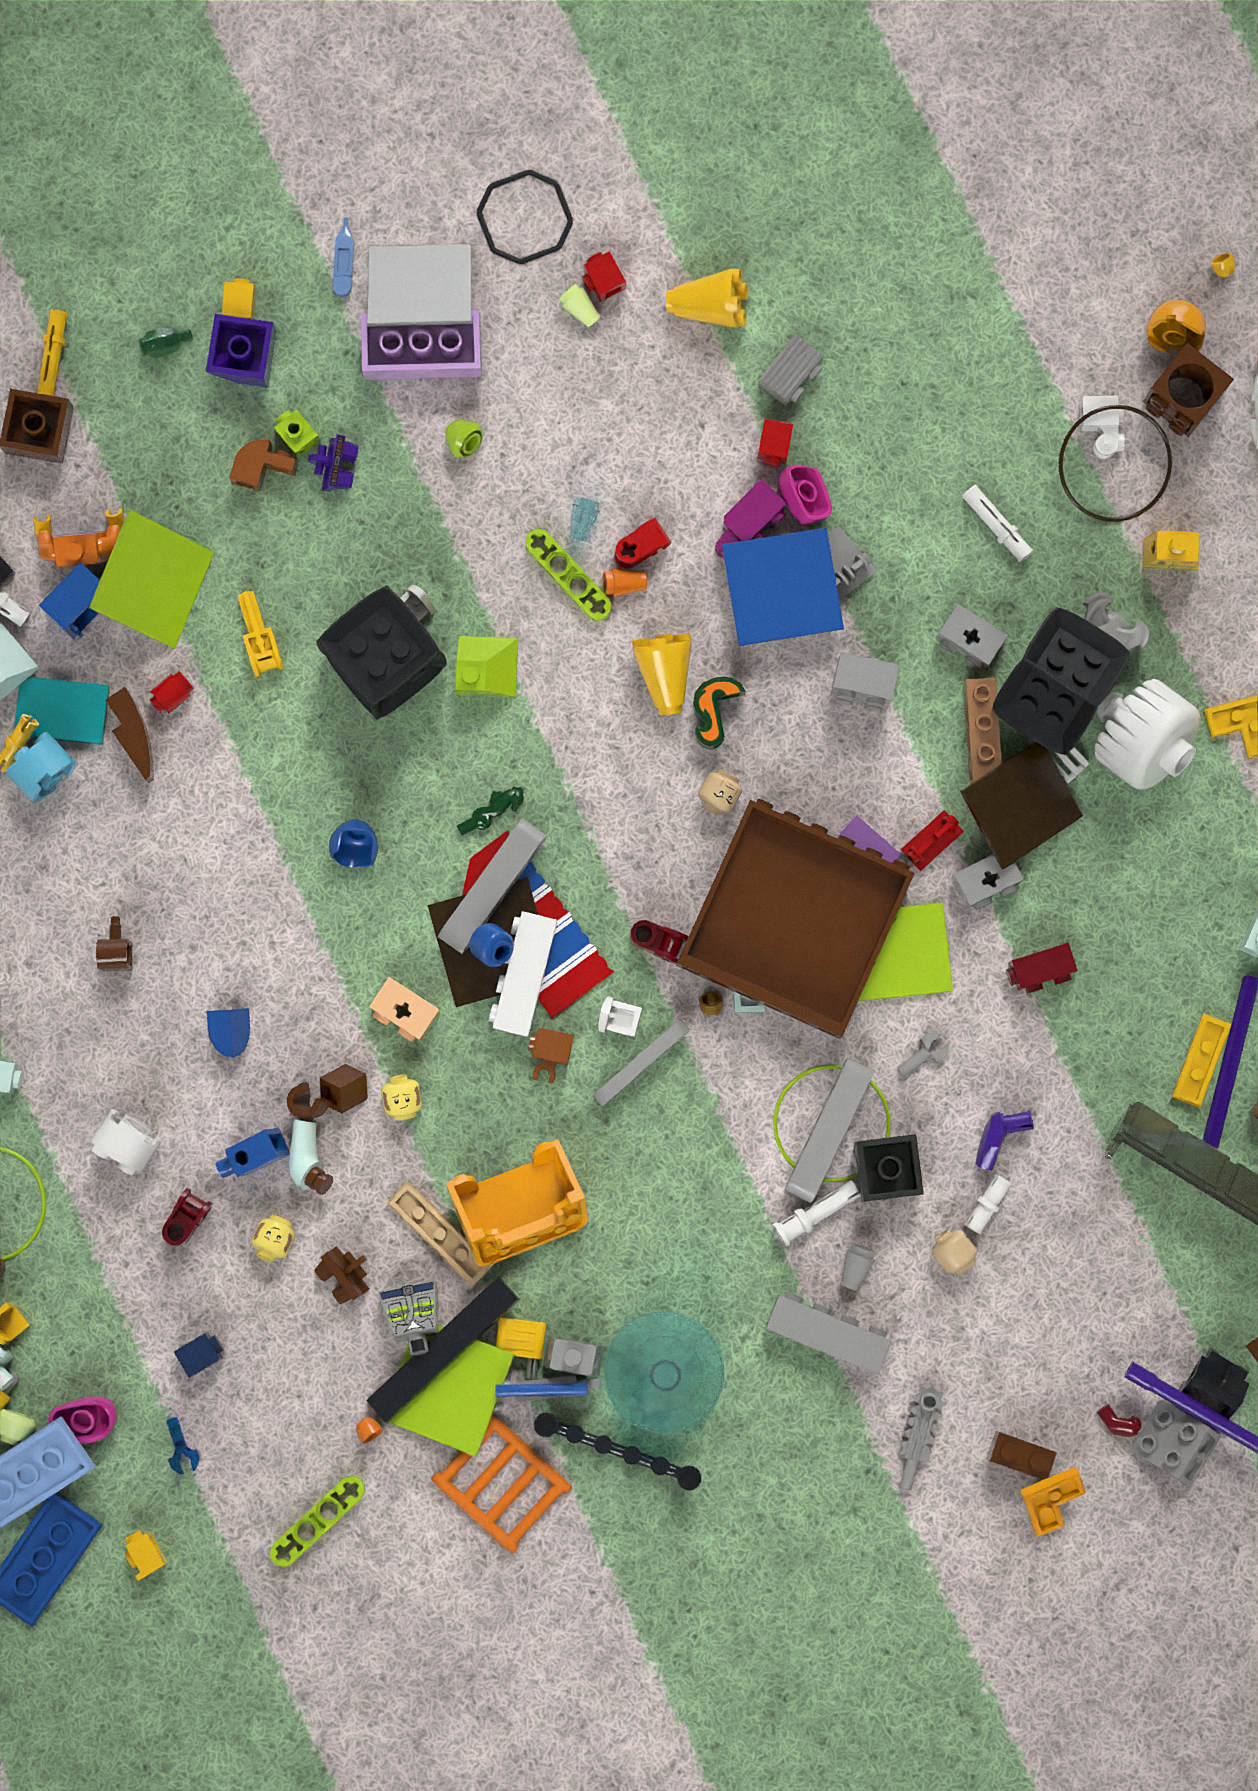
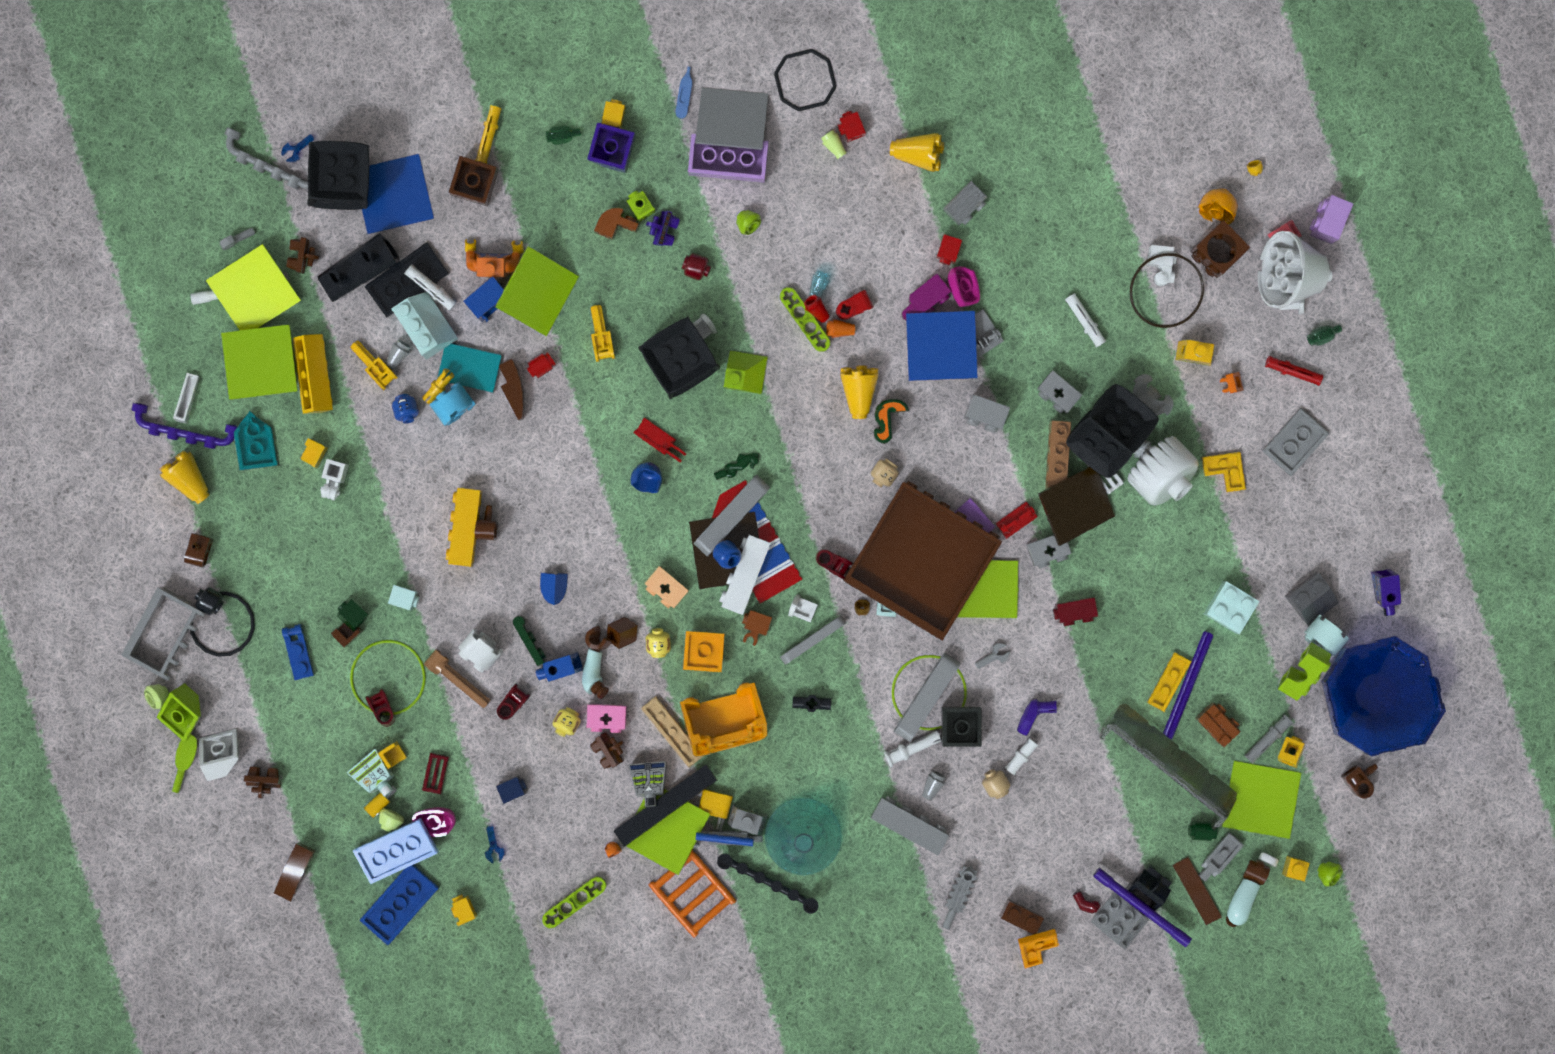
camera: 10 degrees right, 5 degrees up
(64, 1172) = (439, 664): none -> medium nougat axle
(77, 1348) = (442, 777): none -> dark red tile
(78, 966) = (463, 531): none -> yellow brick
(200, 1117) = (528, 639): none -> dark green plate
(317, 1216) = (597, 711): none -> bright pink brick
(364, 784) = (657, 438): none -> red arm
(392, 514) = (696, 266): none -> dark red head
(474, 1100) = (703, 651): none -> light orange panel
(583, 553) = (816, 307): none -> red cone
(668, 1160) = (822, 703): none -> black axle
(1237, 589) = (1234, 383): none -> orange tile

